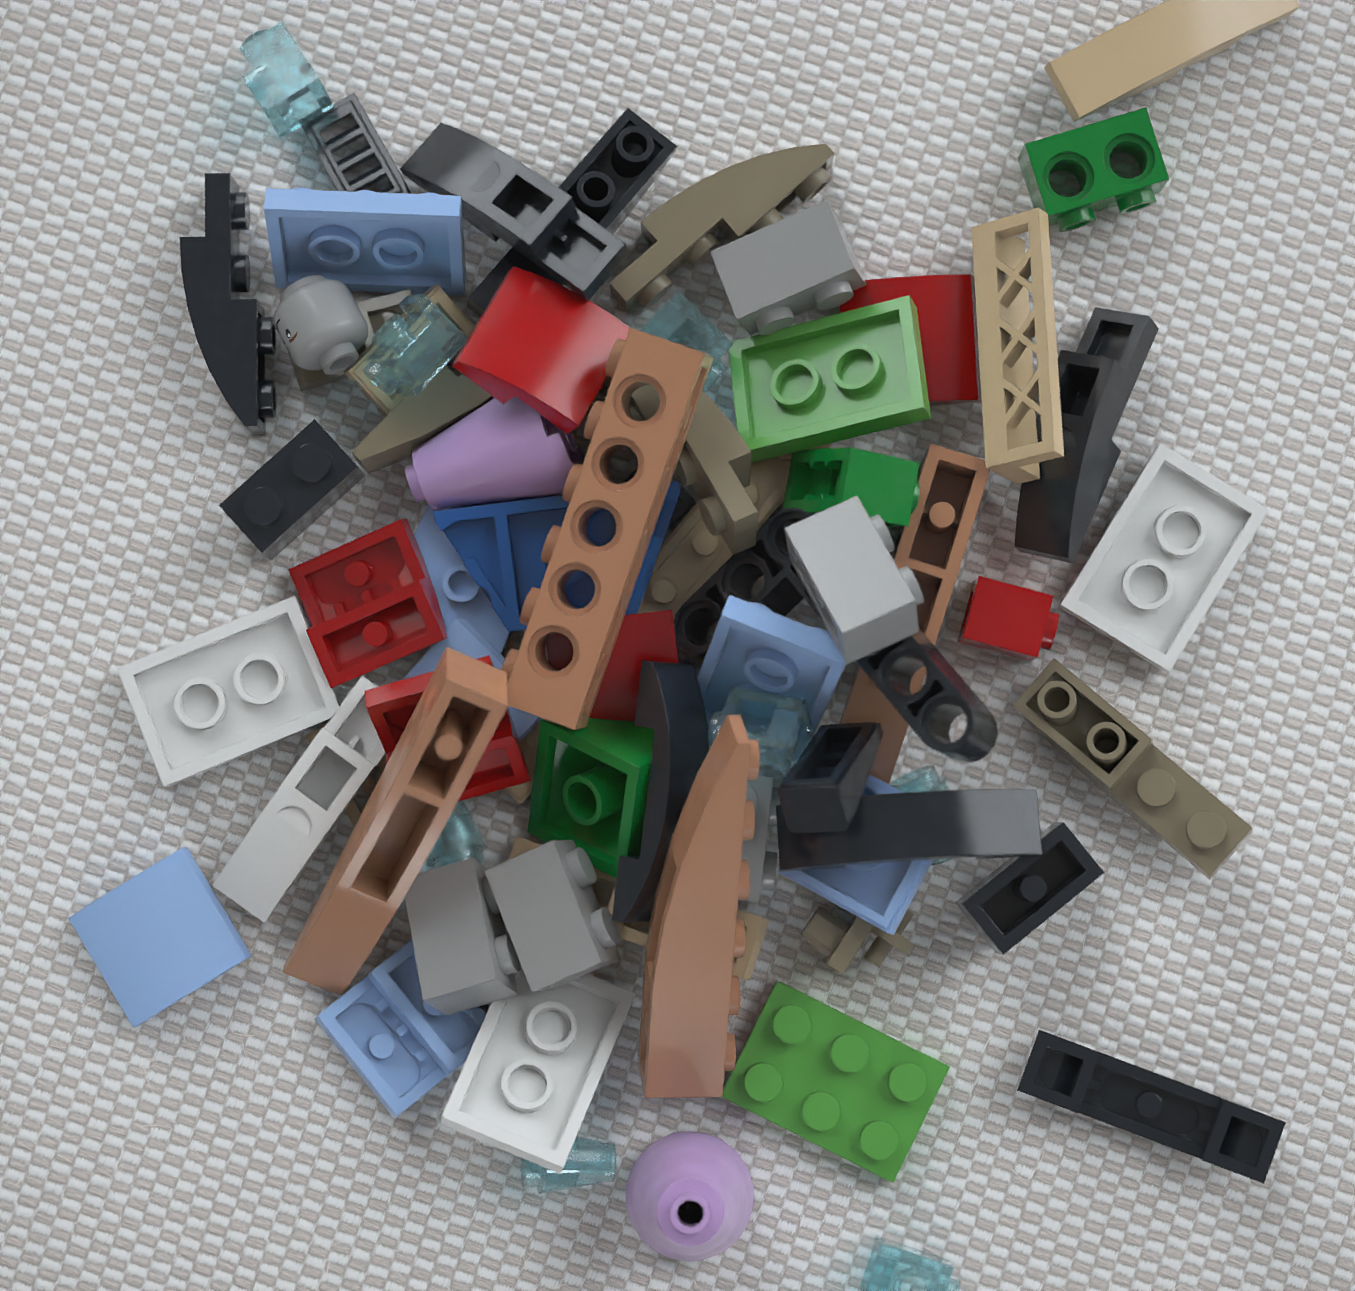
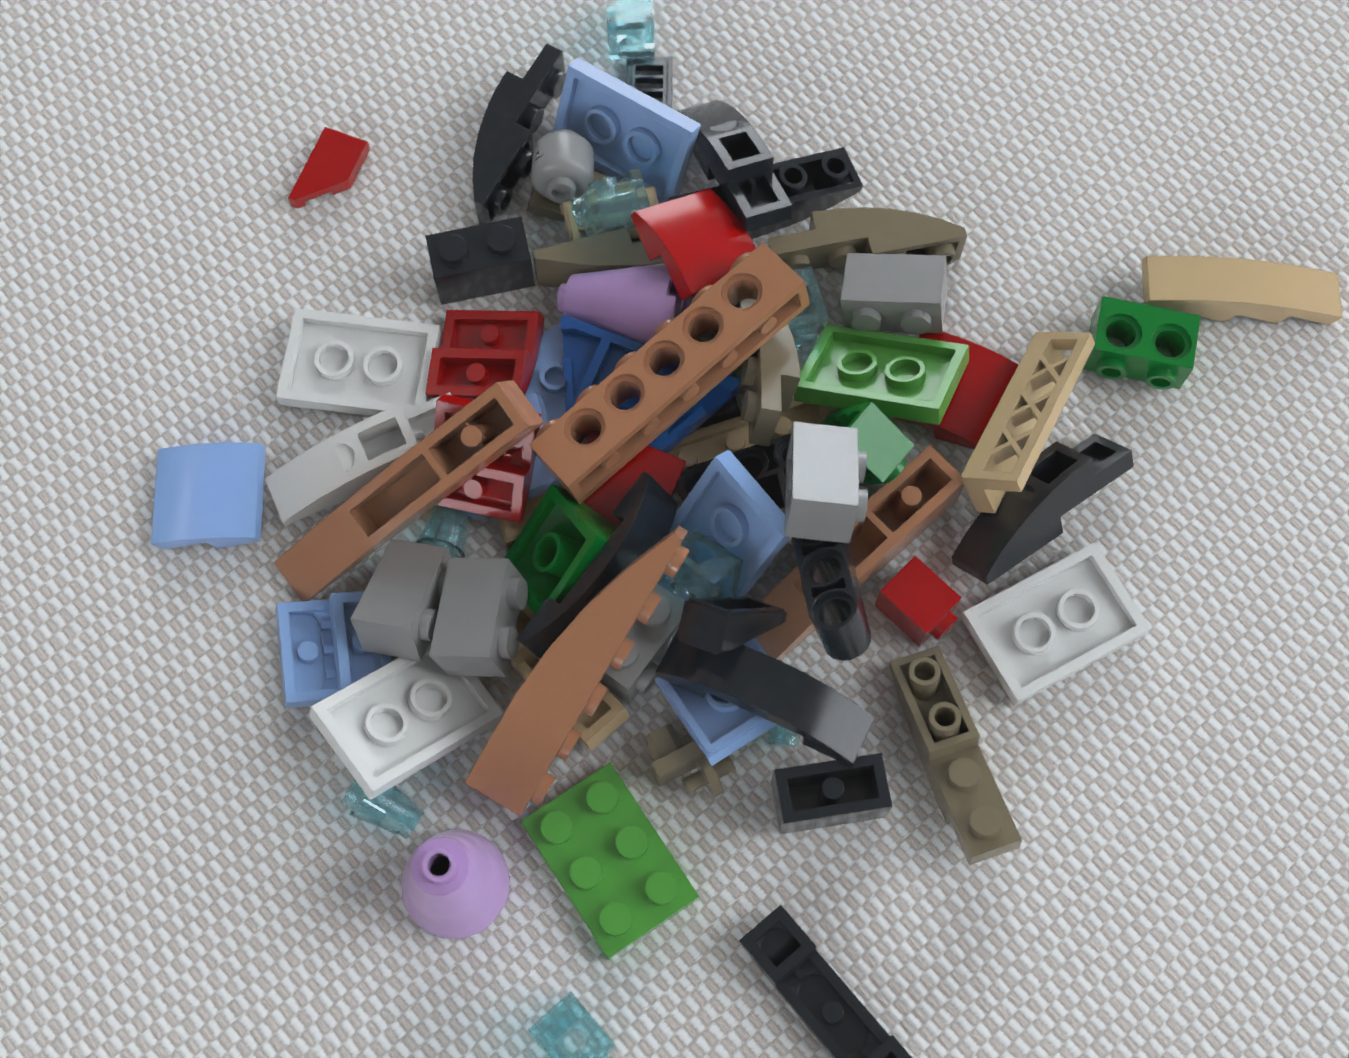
camera: 30 degrees right, 15 degrees down
(36, 464) = (330, 166): none -> red tile

